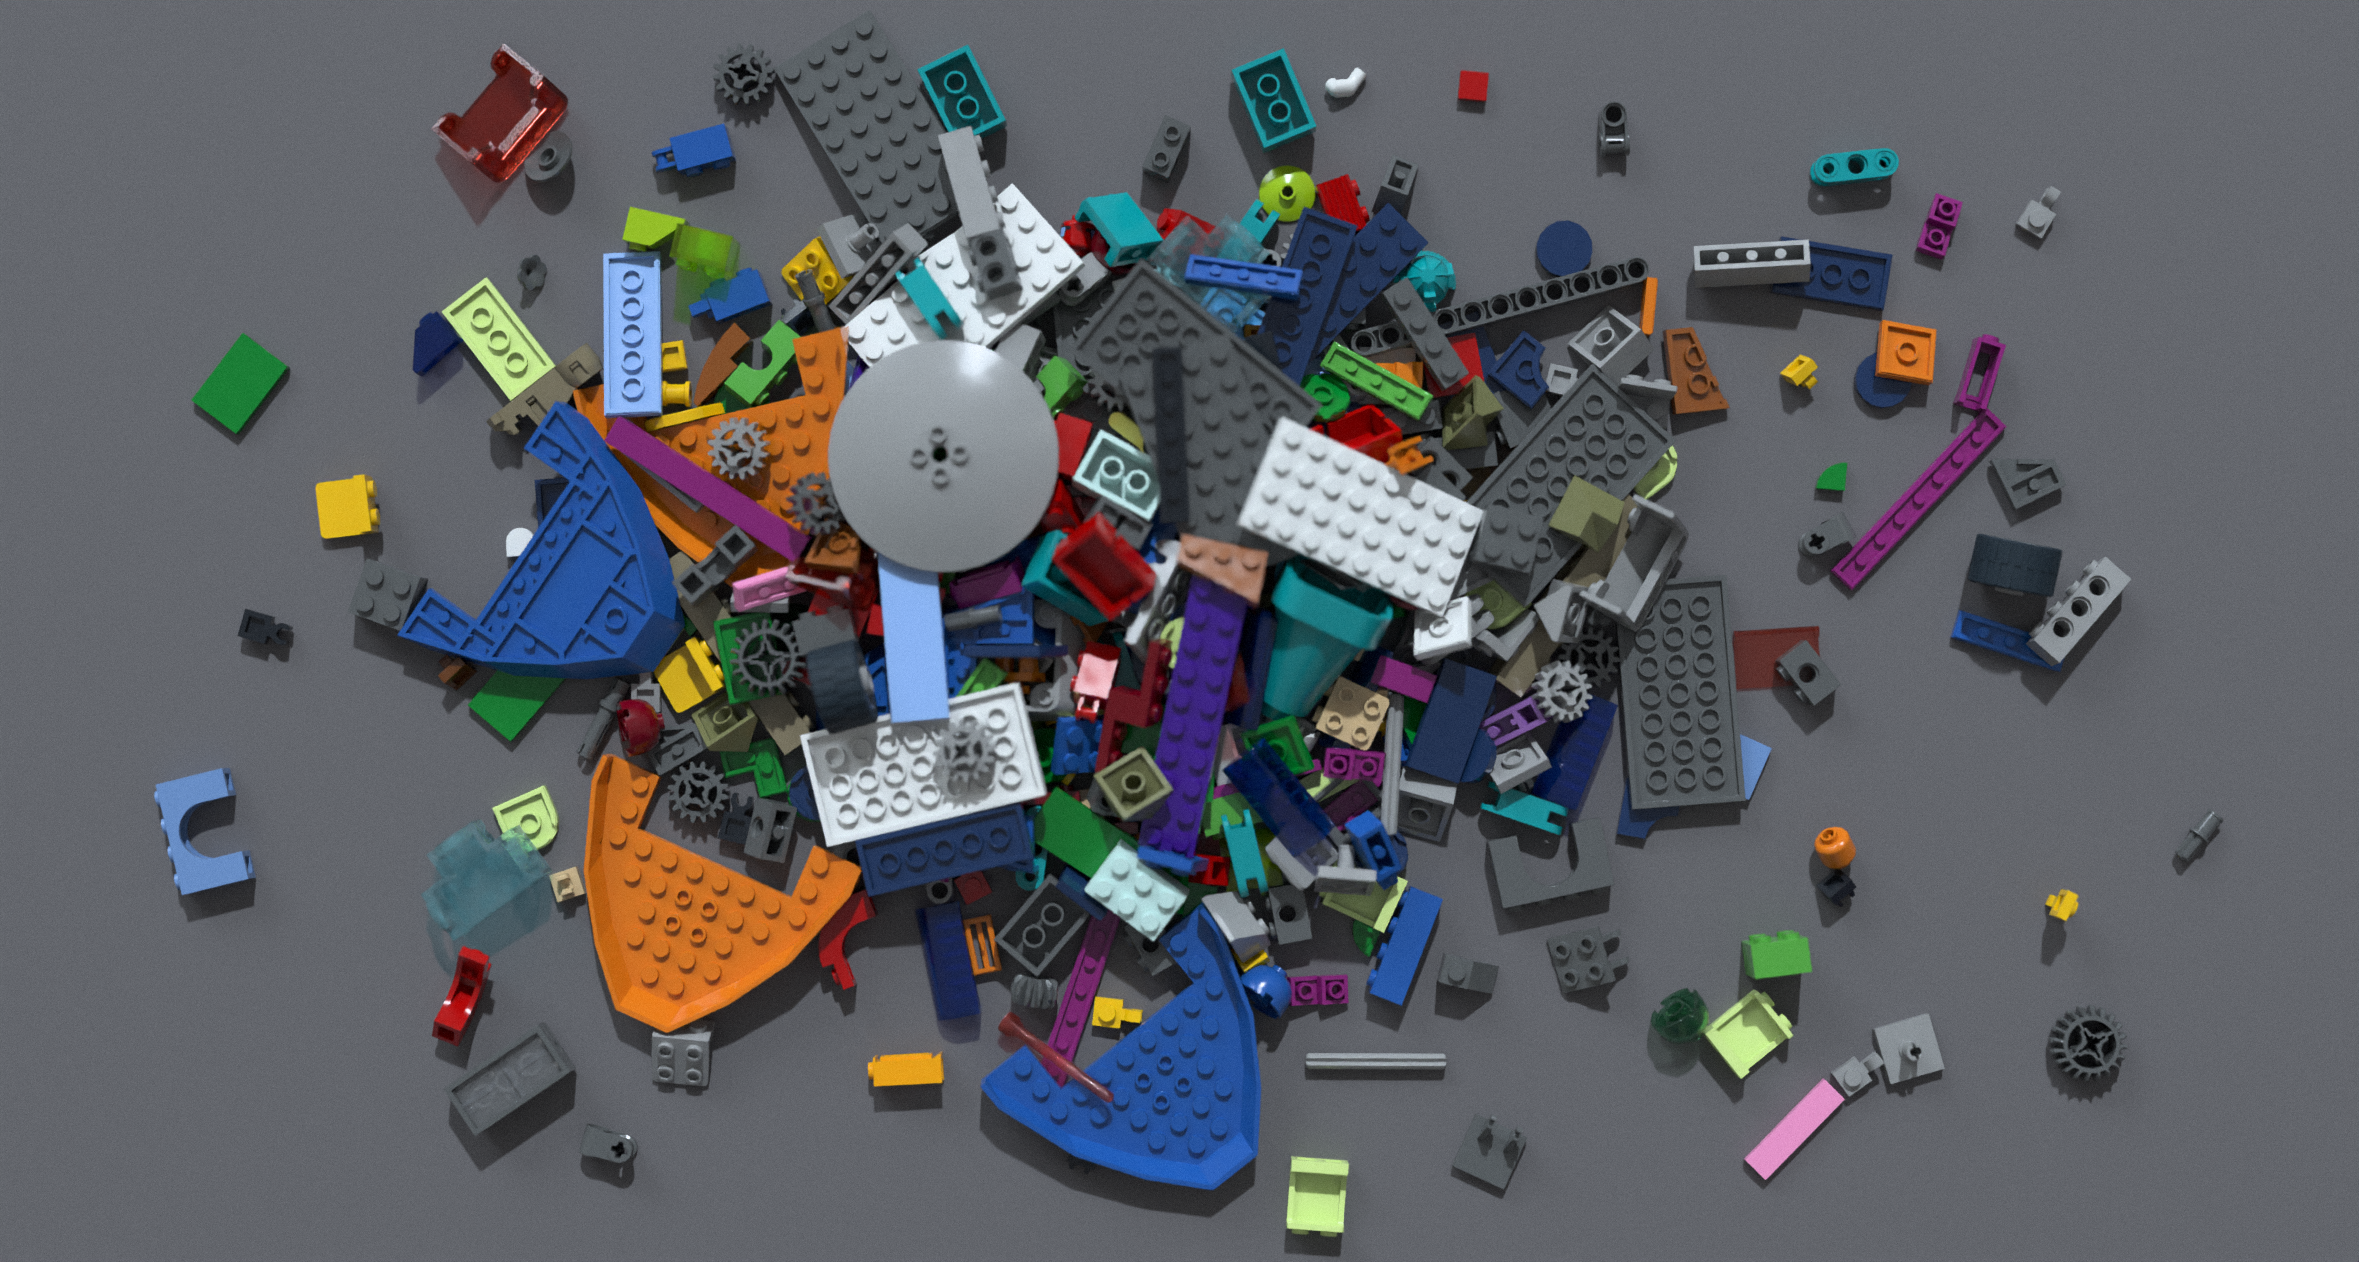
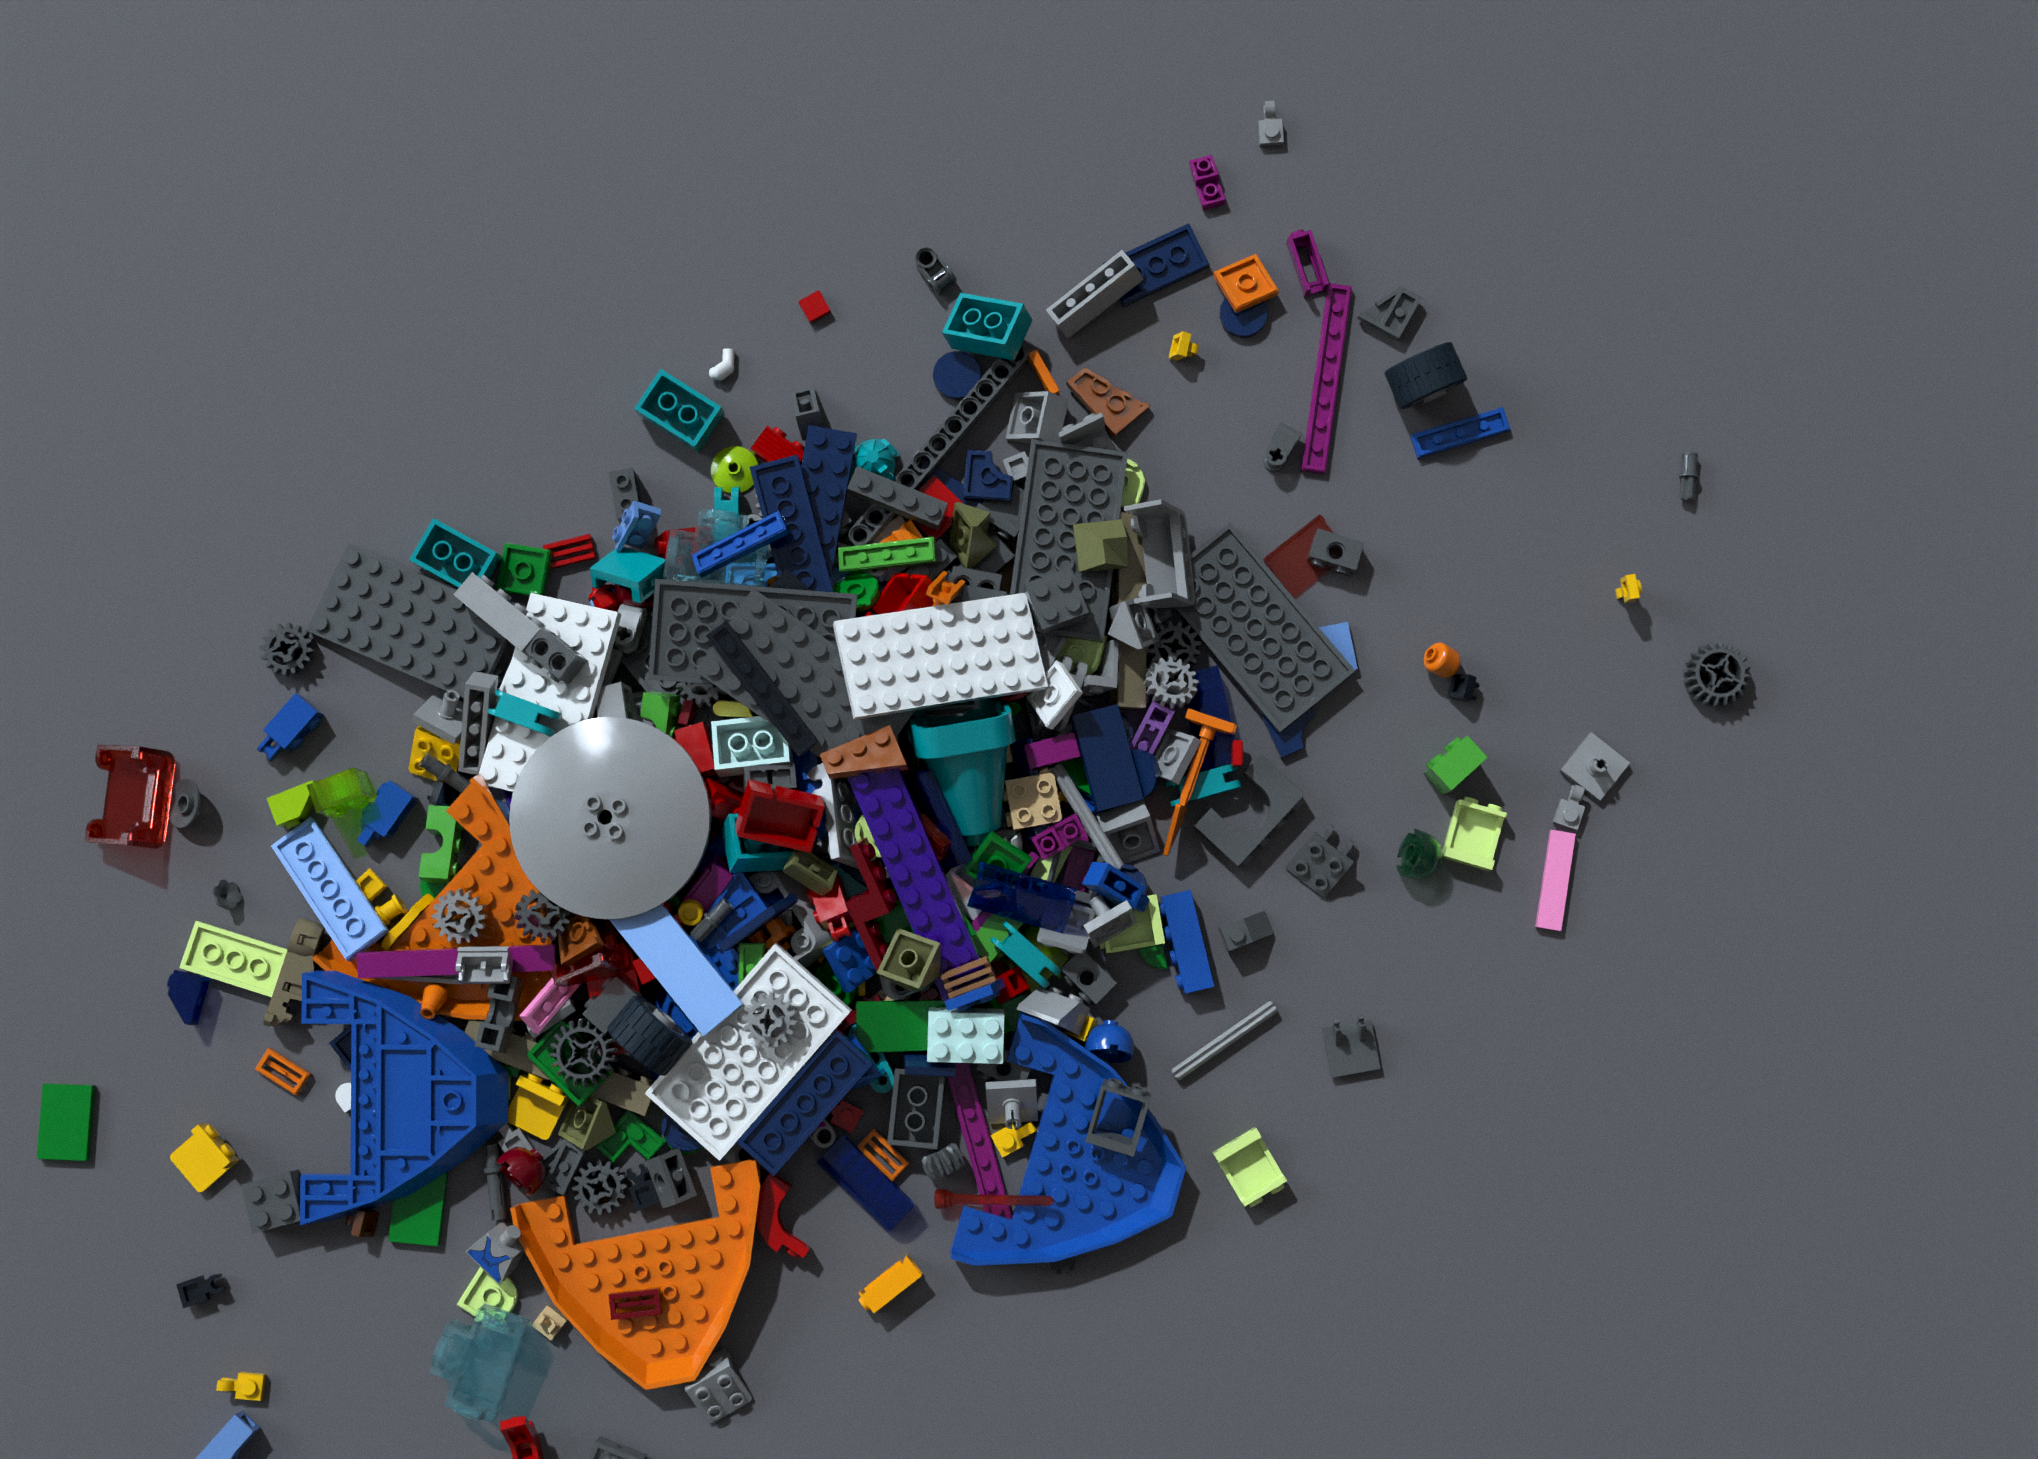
camera: 30 degrees left, 5 degrees down
(249, 748) = (247, 1385): none -> yellow plate
(484, 472) = (300, 1082): none -> orange tile
(564, 786) = (498, 1251): none -> light grey torso
(662, 508) = (433, 999): none -> orange cone
(664, 913) = (634, 1293): none -> dark red tile
(721, 363) = (408, 865): dark orange slope -> none
(732, 512) = (484, 965): none -> light grey hinge
(958, 596) = (691, 912): none -> yellow tile
(1019, 153) = (524, 570): none -> green tile
(1077, 153) = (568, 542): none -> red tile
(1082, 404) = (687, 713): none -> dark red tile
(1097, 638) = (811, 871): none -> olive slope
(1136, 981) = (1012, 1102): none -> light grey tile
(1153, 832) = (976, 984): none -> medium nougat tile
(1156, 185) = (636, 525): none -> medium blue bracket
(1207, 1083) = (1113, 1140): none -> dark grey window
(1319, 989) = (1148, 1017): magenta slope -> none
(1568, 759) = (1209, 727): none -> orange piece
(1576, 802) = (1236, 753): none -> red tile
(1626, 224) = (987, 326): none -> teal brick
(1833, 478) = (1257, 404): green tile -> none
(1869, 167) = (1125, 170): teal piece -> none
(2110, 583) = (1498, 342): light grey brick -> none

